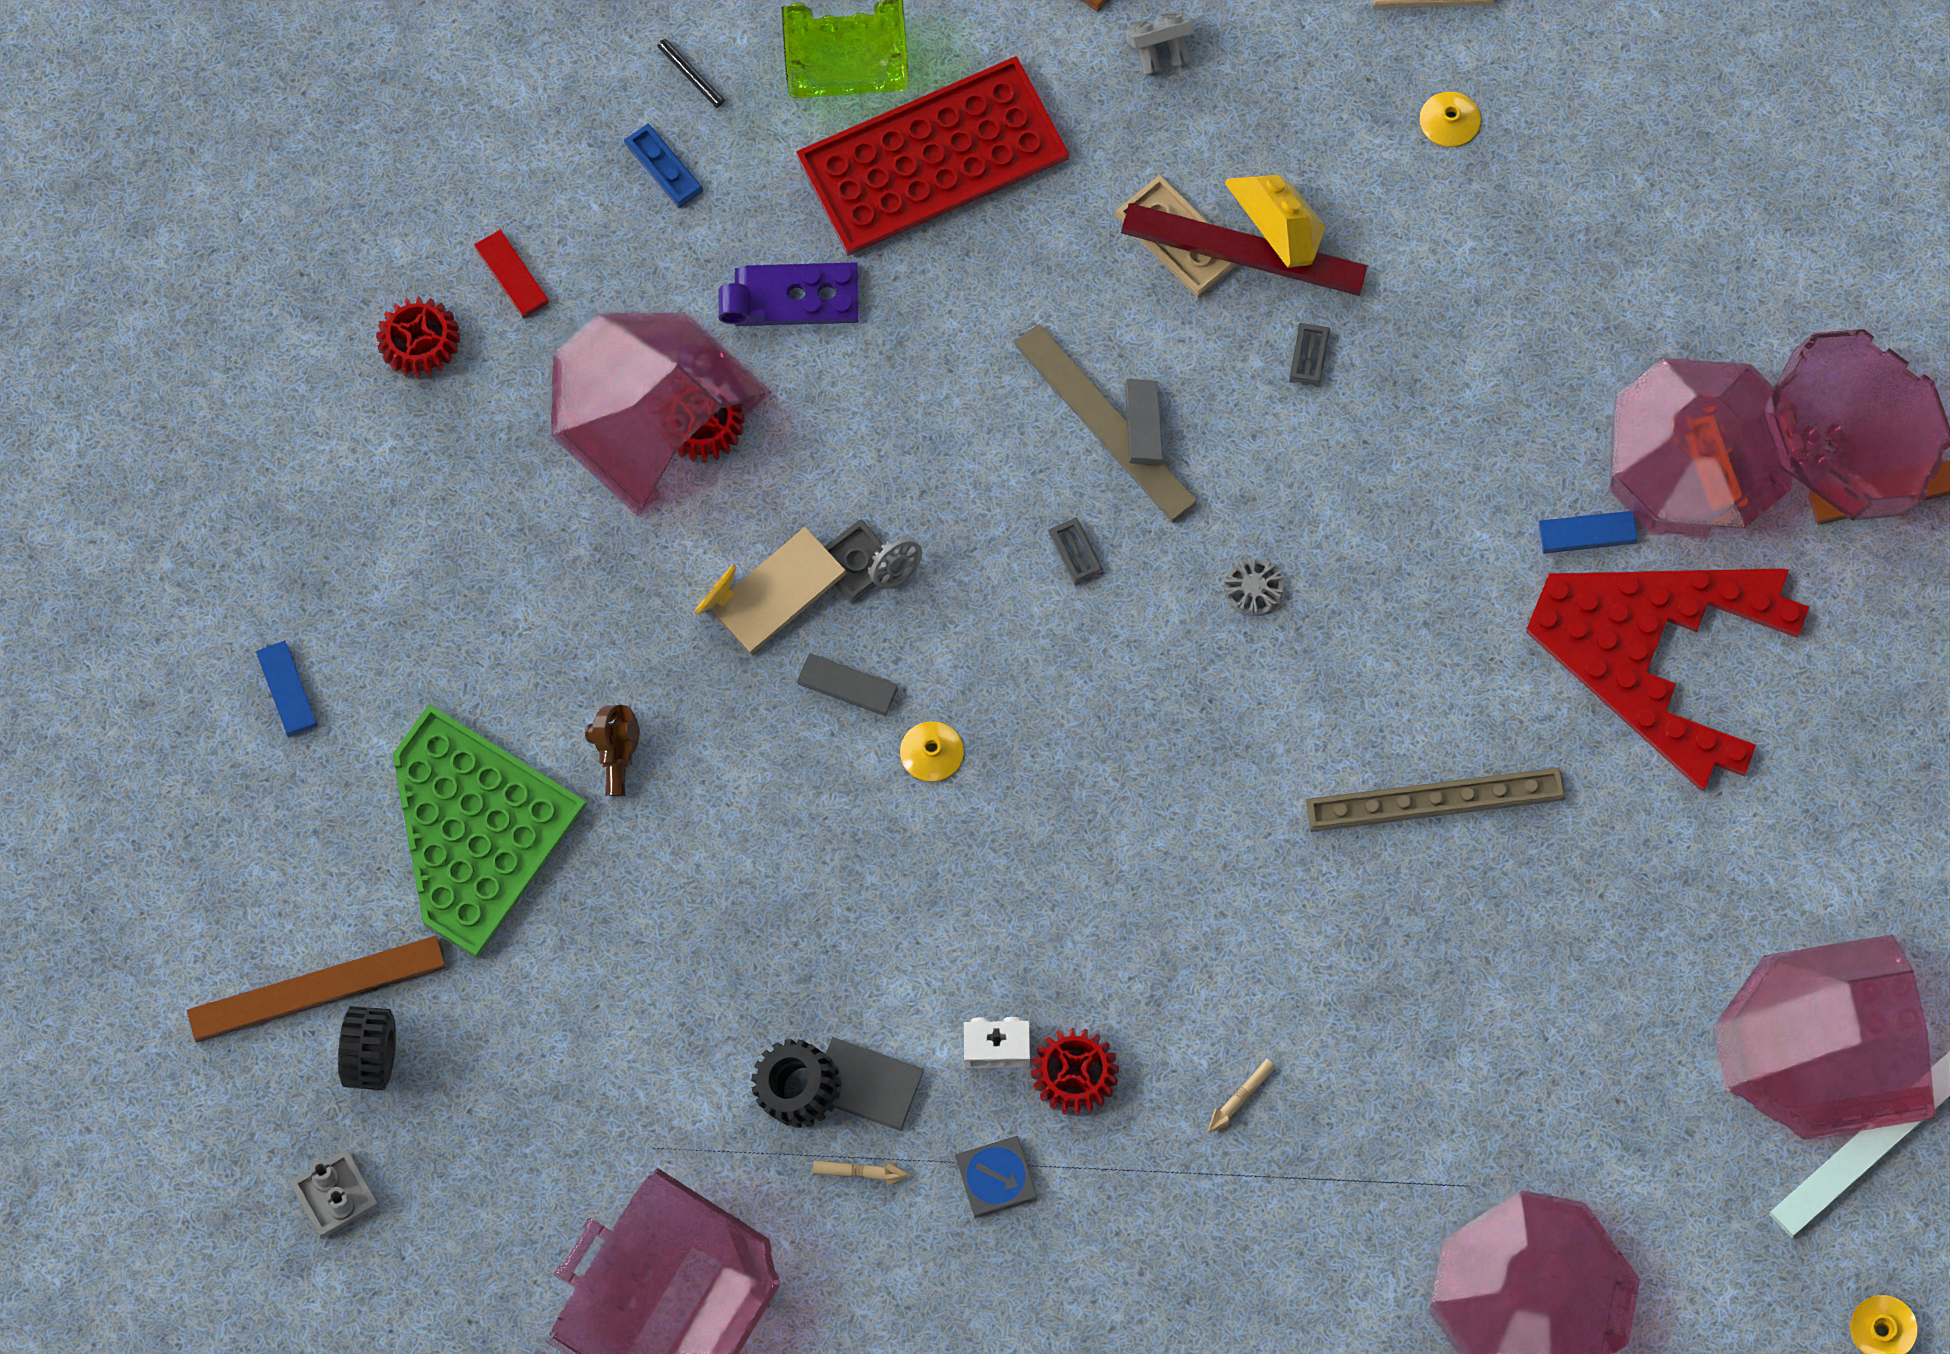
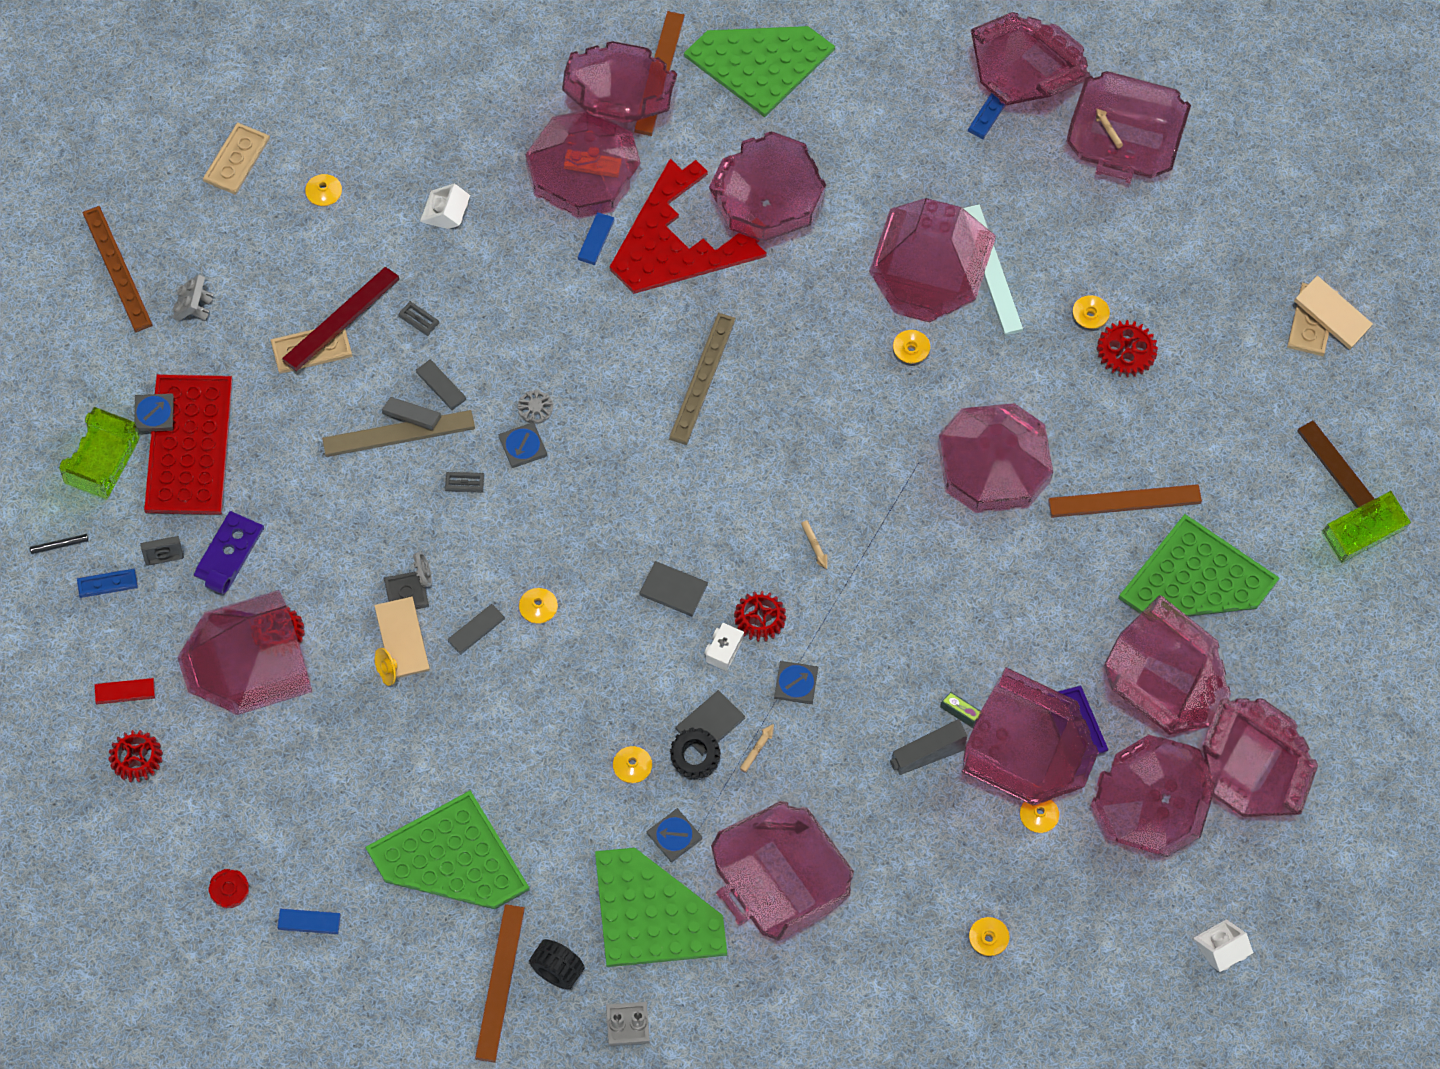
camera: 70 degrees left, 5 degrees down
(289, 568) = (228, 888): none -> red tile
(522, 1146) = (652, 914): none -> bright green plate
(615, 743) = (444, 755): reddish brown pin -> none
(660, 1118) = (674, 835): none -> tile
(739, 206) = (162, 550): none -> dark grey tile
(750, 1020) = (636, 772): none -> yellow dish
(951, 83) = (154, 412): none -> tile
(1058, 927) = (673, 588): none -> dark grey tile
(1180, 601) = (522, 445): none -> tile
(1216, 439) = (441, 384): none -> dark grey tile
(1280, 216) = (332, 291): yellow wedge -> none
(1514, 297) = (445, 207): none -> white slope
(1666, 1065) = (911, 339): none -> yellow dish
(1827, 702) = (770, 170): none -> clear pink windscreen

